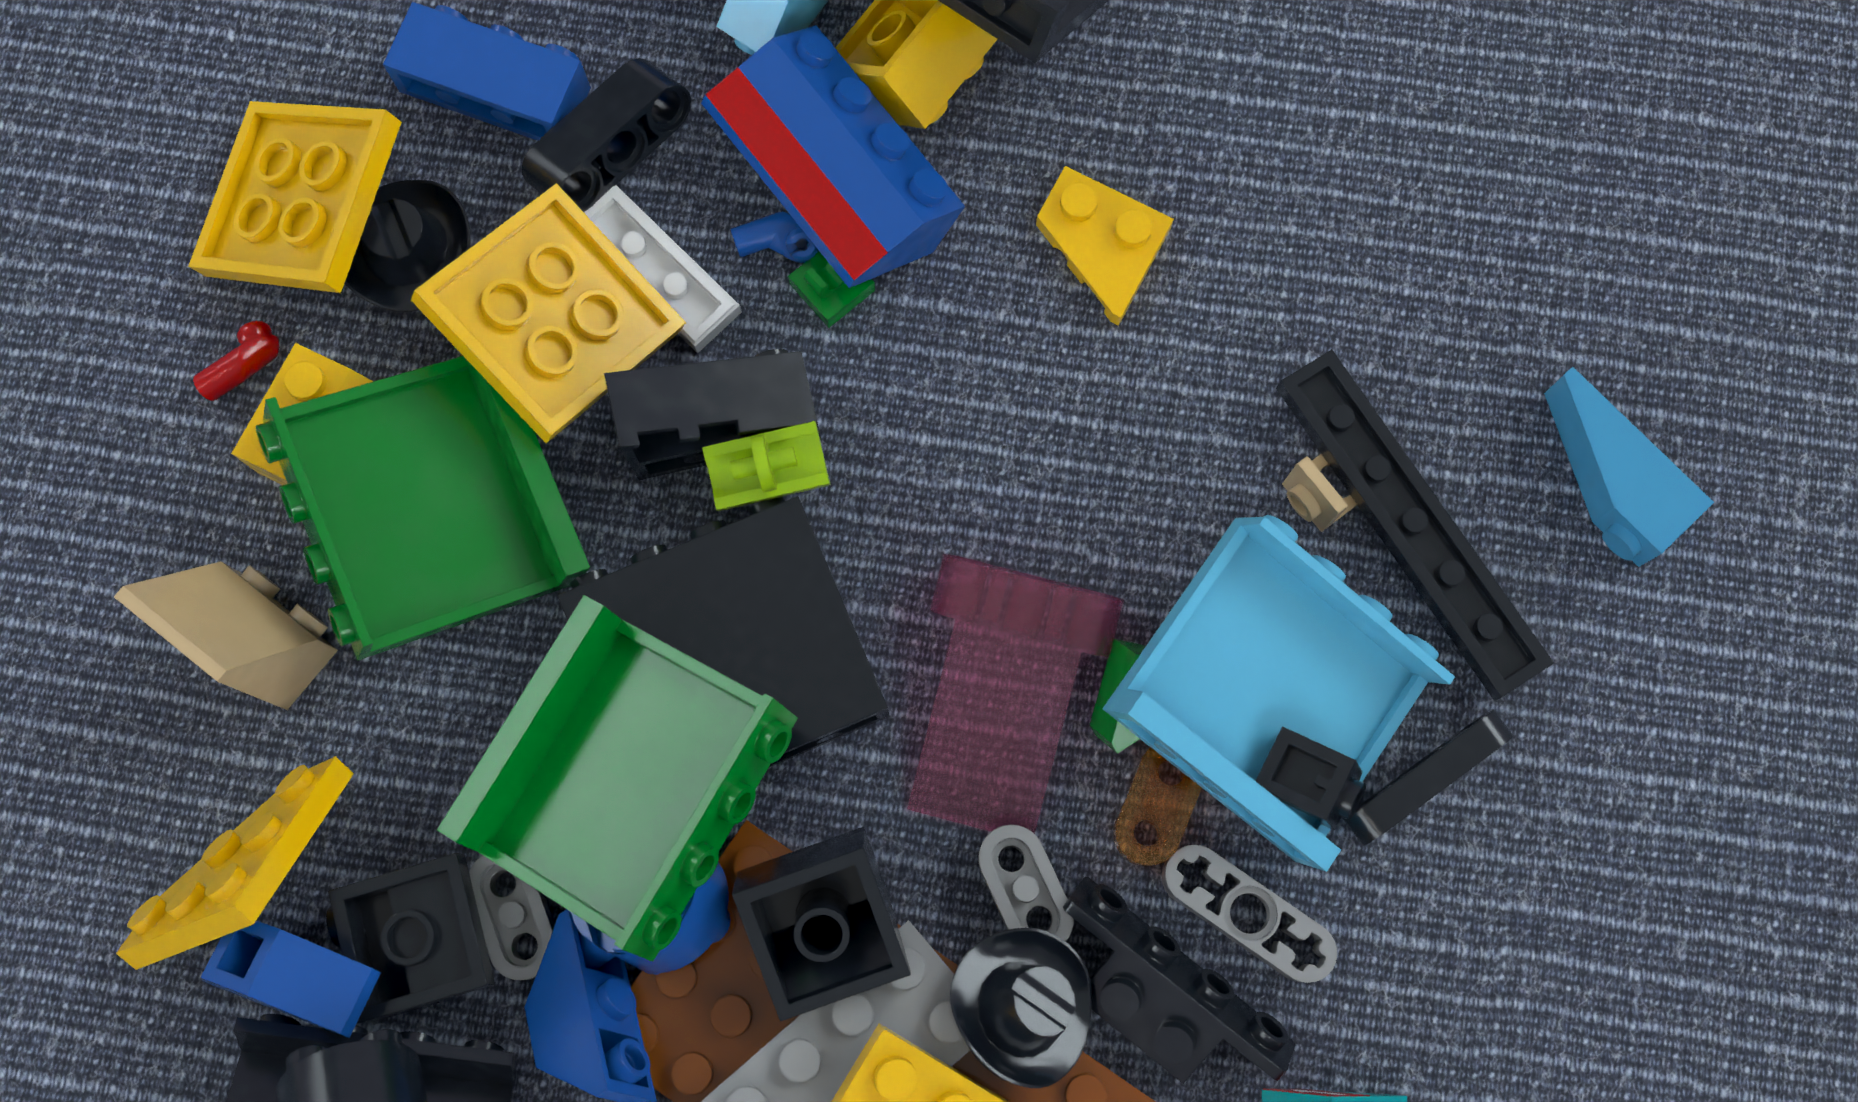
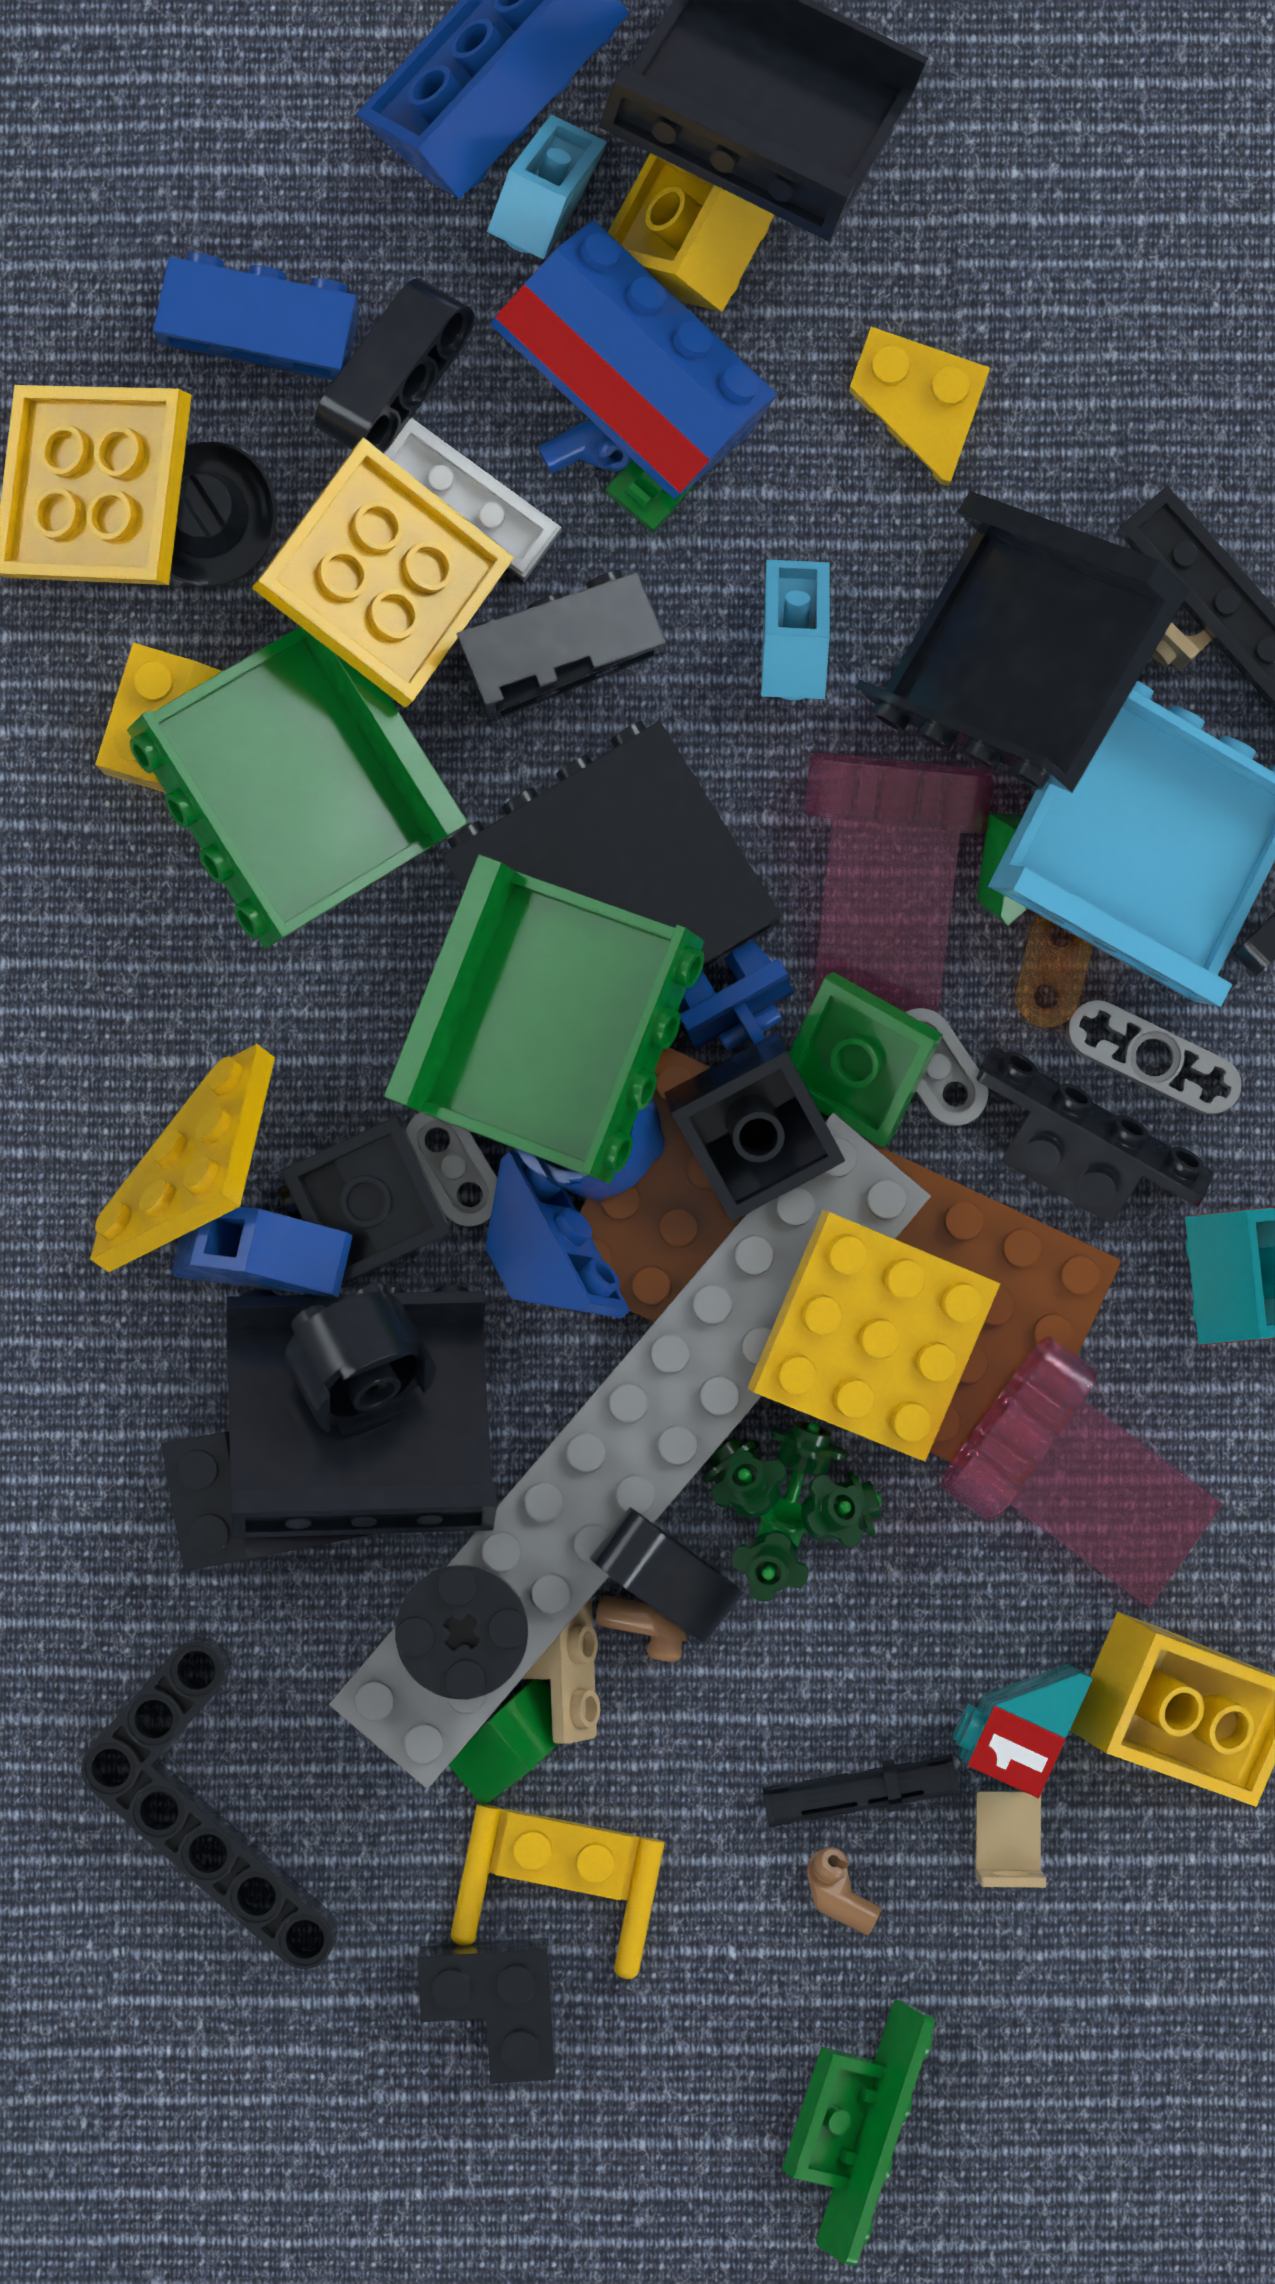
camera: 10 degrees left, 10 degrees up
(234, 629) = (143, 935): tan slope -> none
(255, 352) = (66, 669): red arm -> none
(766, 466) = (623, 695): lime hips -> none
(833, 796) = (742, 1008): none -> blue hips
(947, 434) = (796, 629): none -> medium azure slope
(947, 867) = (862, 1057): none -> green plate
(1023, 1005) = (953, 1173): black hat -> none
(1183, 474) = (1030, 645): none -> black panel
(1312, 778) = (1197, 921): black bracket -> none

